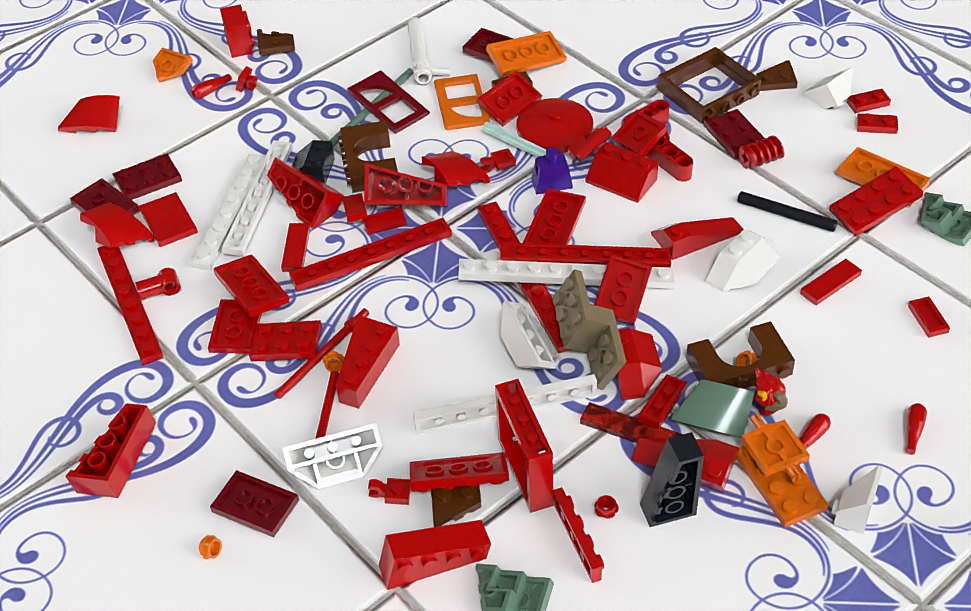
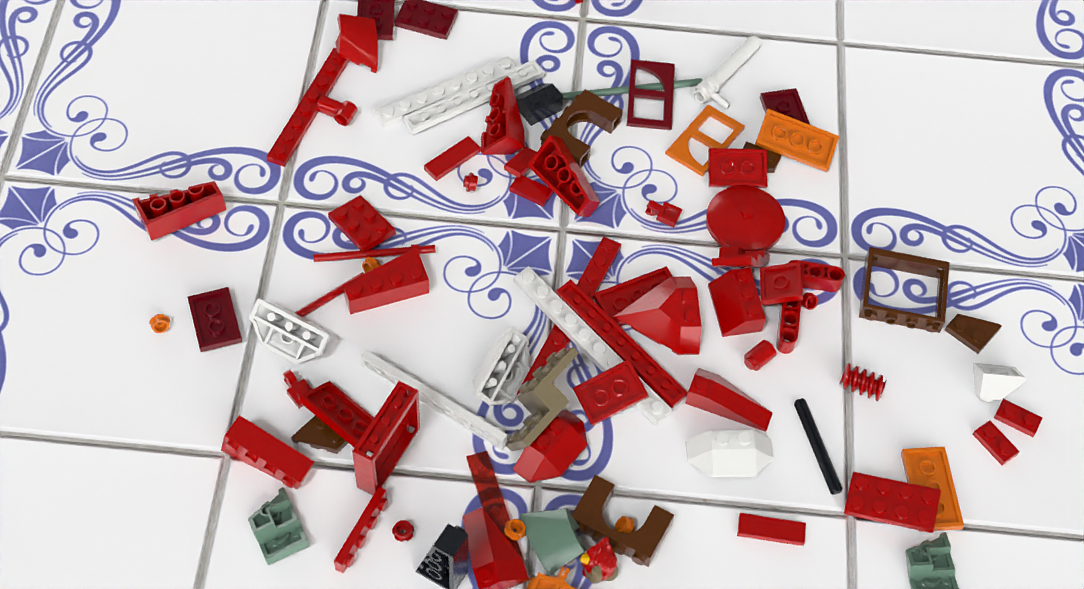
camera: 40 degrees right, 10 degrees up
(168, 219) = (401, 63): red tile -> none
(232, 329) = (348, 182): red tile -> none
(251, 285) = (386, 162): red plate -> none
(333, 248) = (470, 182): none -> red plate
(370, 254) = (490, 208): red plate -> none
(455, 169) = (623, 191): red slope -> none
(513, 139) = (700, 215): light aqua axle -> none
(551, 172) = (684, 257): dark purple torso -> none
(593, 212) = (668, 315): none -> red wedge
(662, 401) = (531, 497): red tile -> none
(680, 190) = (759, 355): none -> red brick
(683, 426) = (518, 526): none -> orange plate
(732, 131) = (871, 346): dark red plate -> none

